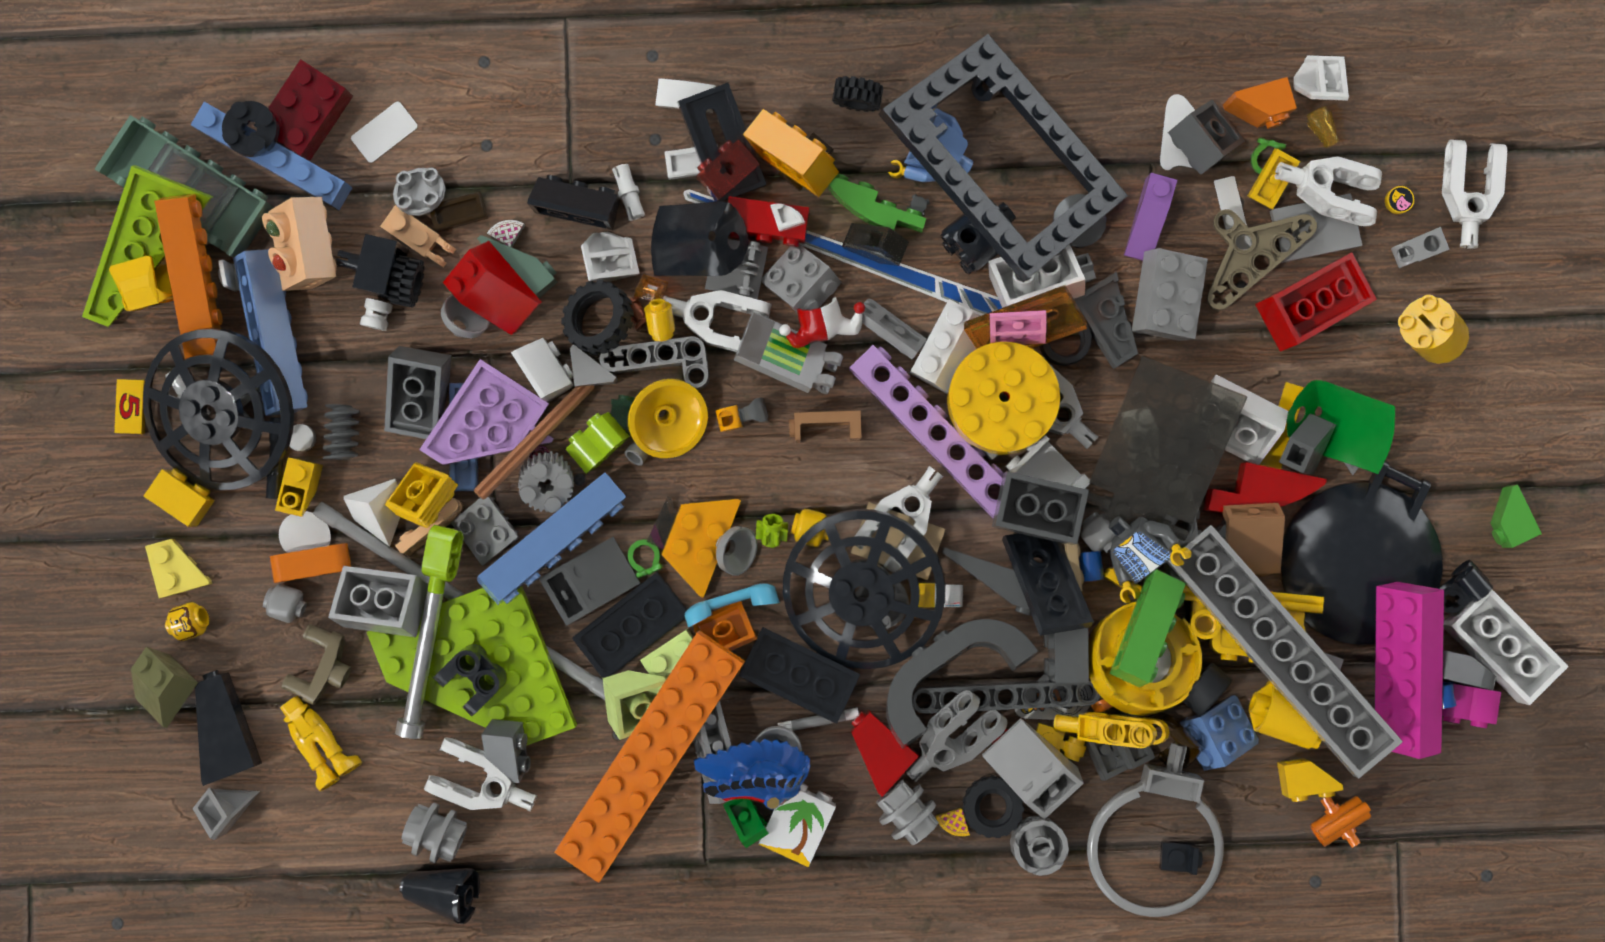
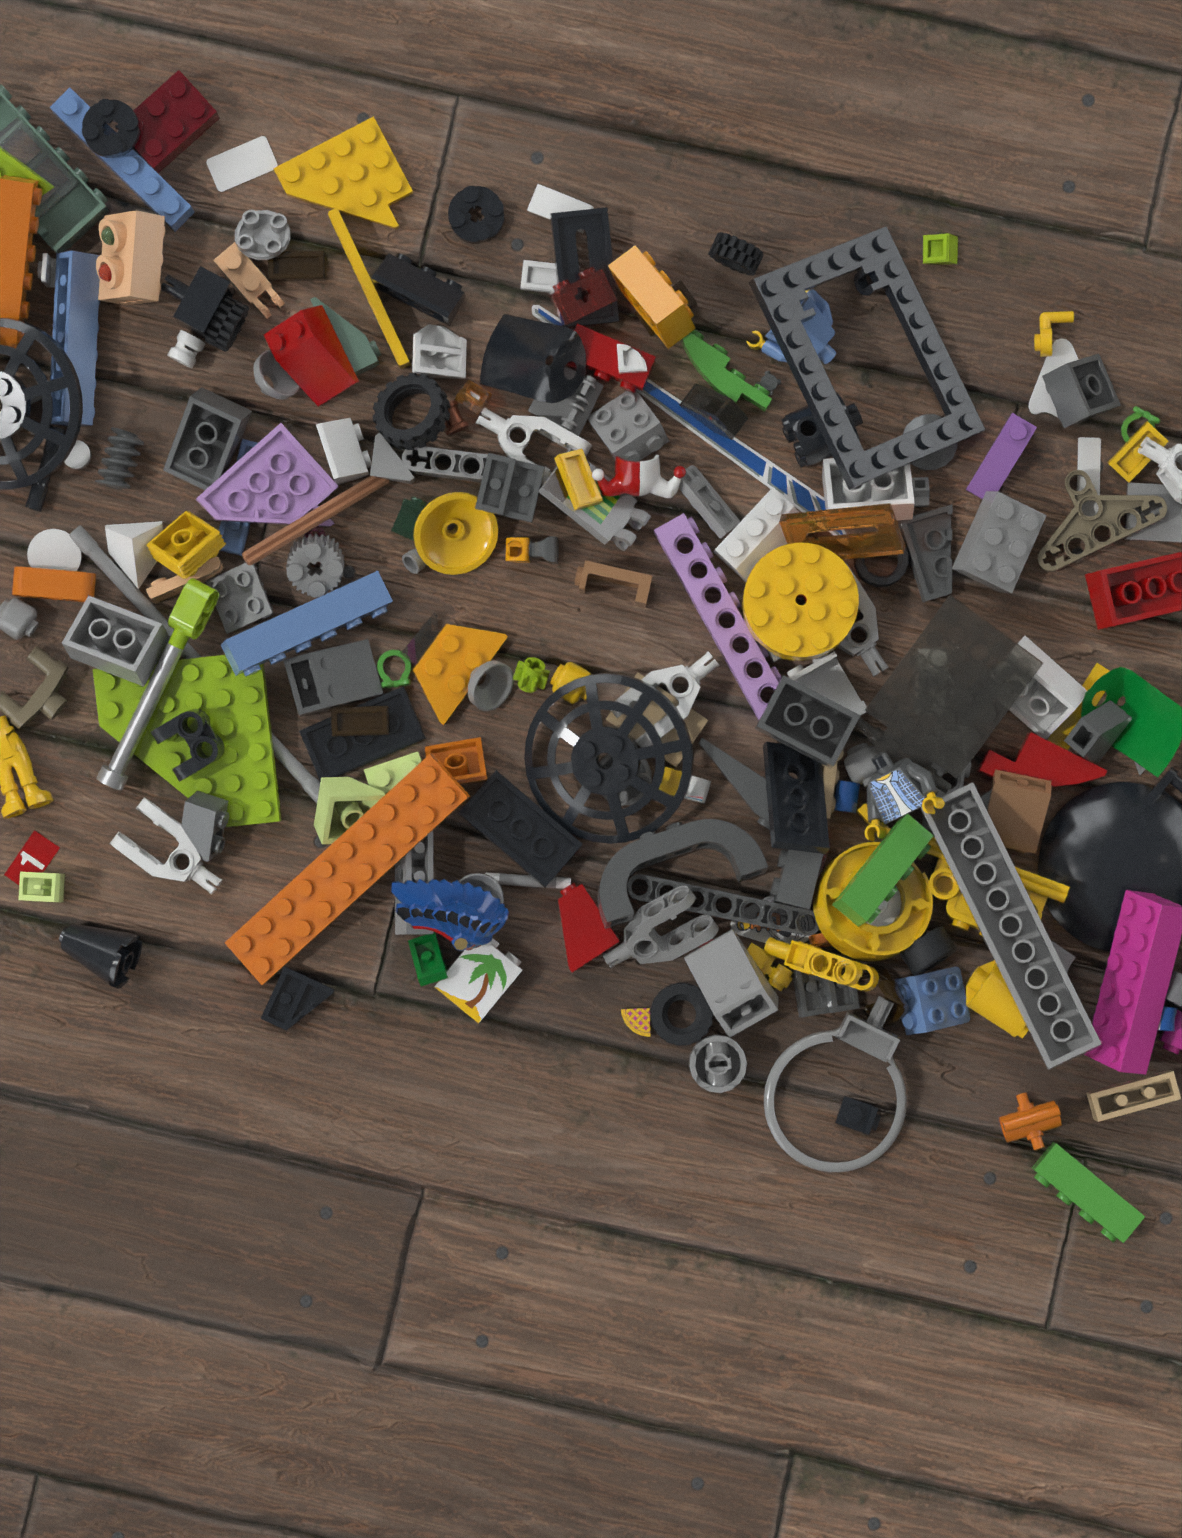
camera: 10 degrees right, 0 degrees up
(298, 486) = (62, 503): yellow slope -> none
(357, 822) = (33, 857): none -> red sticker
(373, 845) = (41, 887): none -> yellowish green slope
(434, 832) = (110, 889): light grey piece -> none
(484, 116) = (350, 174): none -> yellow wing
(507, 231) = (341, 299): white tile -> none
(528, 214) = (368, 288): none -> yellow tile
(596, 442) = (377, 538): lime brick -> none
(623, 113) = (460, 219): none -> black plate
(625, 615) = (360, 721): none -> dark brown tile
(628, 192) = (476, 291): white pin -> none
(631, 887) = (294, 998): none -> black wing
(660, 320) = (474, 431): yellow brick -> none
(706, 363) = (510, 487): none -> dark grey slope
(759, 594) = (501, 736): medium azure piece -> none
(767, 339) = (578, 479): none -> yellow tile
(907, 812) = (593, 994): light grey piece -> none
(1018, 327) = (833, 534): bright pink slope -> none
(1042, 42) = (940, 249): none -> lime slope
(1160, 100) = (1043, 341): none -> yellow plate
(1263, 104) = (1145, 372): orange slope -> none
(1303, 778) = (1006, 1068): yellow slope -> none
(1411, 873) = (1088, 1192): none -> bright green brick
(1430, 773) = (1133, 1095): none -> tan brick

